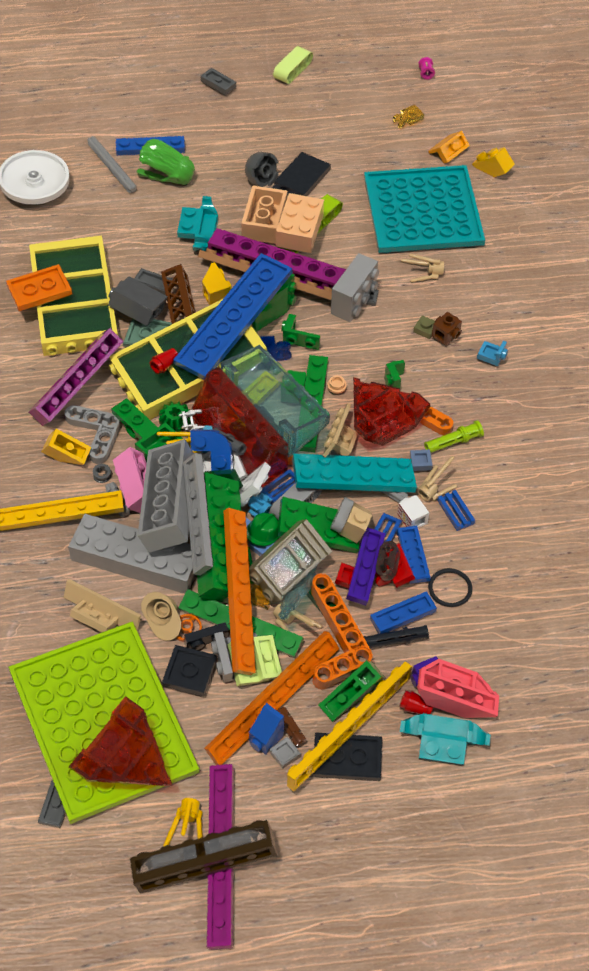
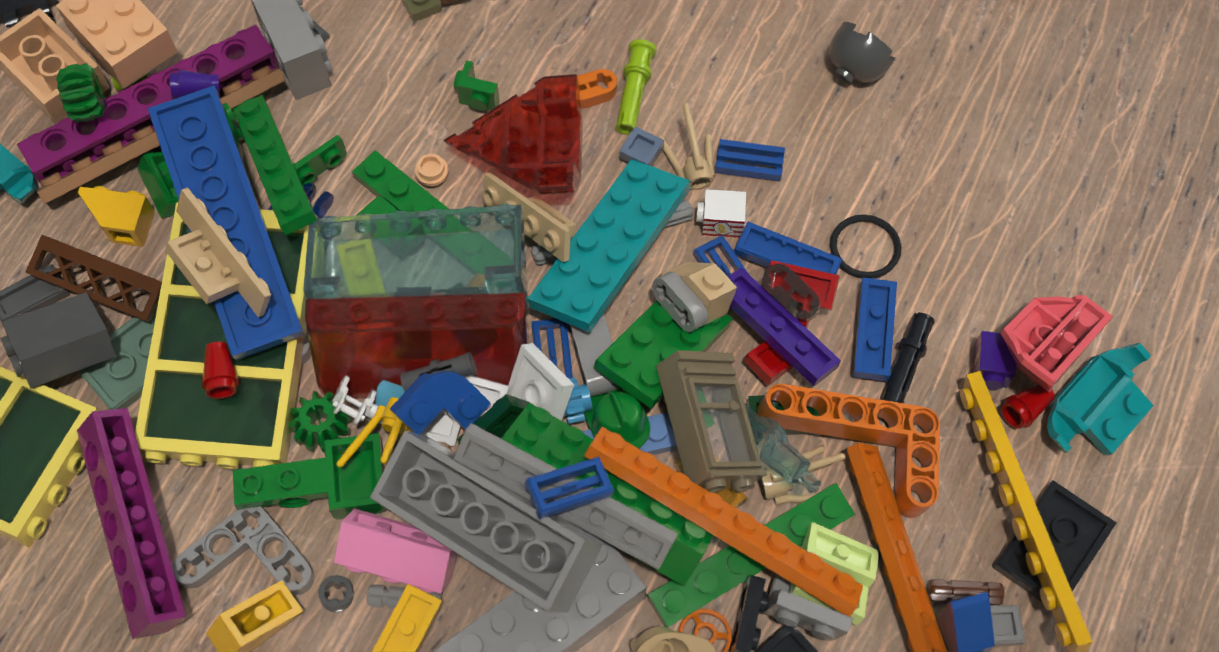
camera: 55 degrees left, 10 degrees up
(197, 510) = (539, 498): none -> blue tile
(205, 320) = (211, 259): none -> tan bracket
(255, 230) = (80, 92): none -> green gear
(280, 319) = (274, 165): none -> green plate
(297, 266) = (188, 82): none -> dark purple cone
(352, 690) = (964, 472): green slope -> none
(556, 520) = (859, 55): none -> dark grey cylinder

